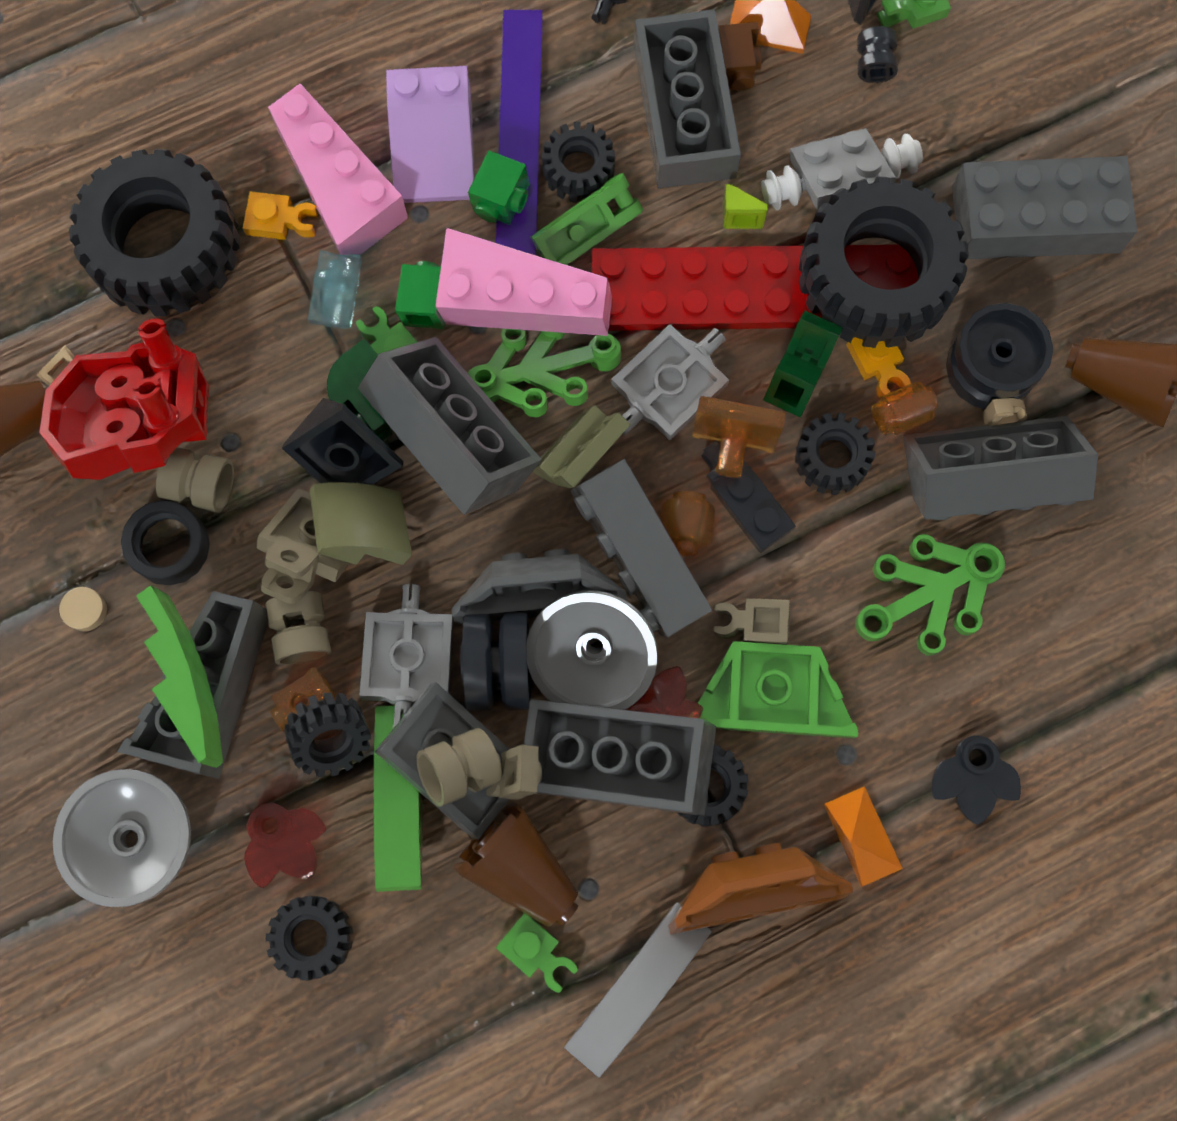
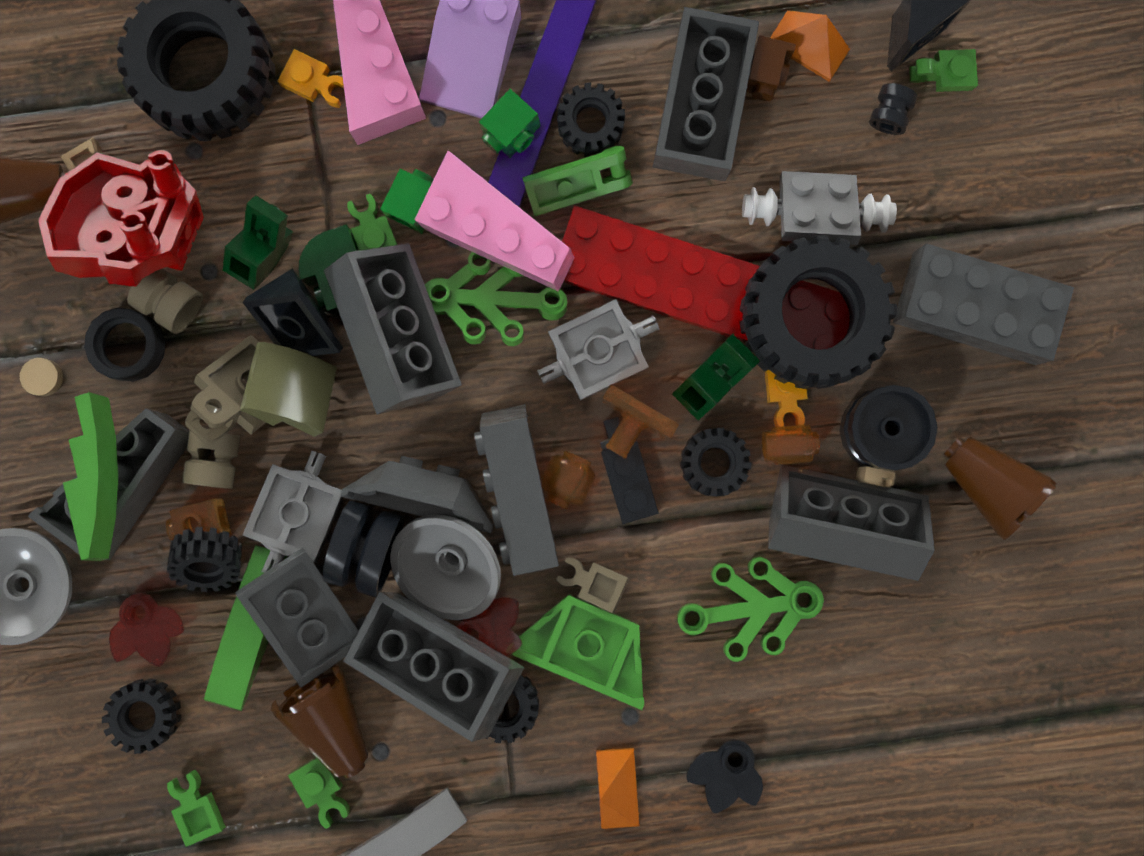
camera: 15 degrees right, 10 degrees up
(279, 390) = (259, 245): none -> dark green brick
(334, 290) = (337, 168): clear light blue hips -> none
(408, 1029) = (197, 815): none -> bright green plate
(452, 769) = (298, 631): dark tan wheel -> none
(519, 773) = (344, 653): dark tan plate -> none
(580, 447) = (498, 385): olive slope -> none
(742, 210) = (717, 215): lime slope -> none
(757, 887) = (509, 804): dark orange wedge -> none

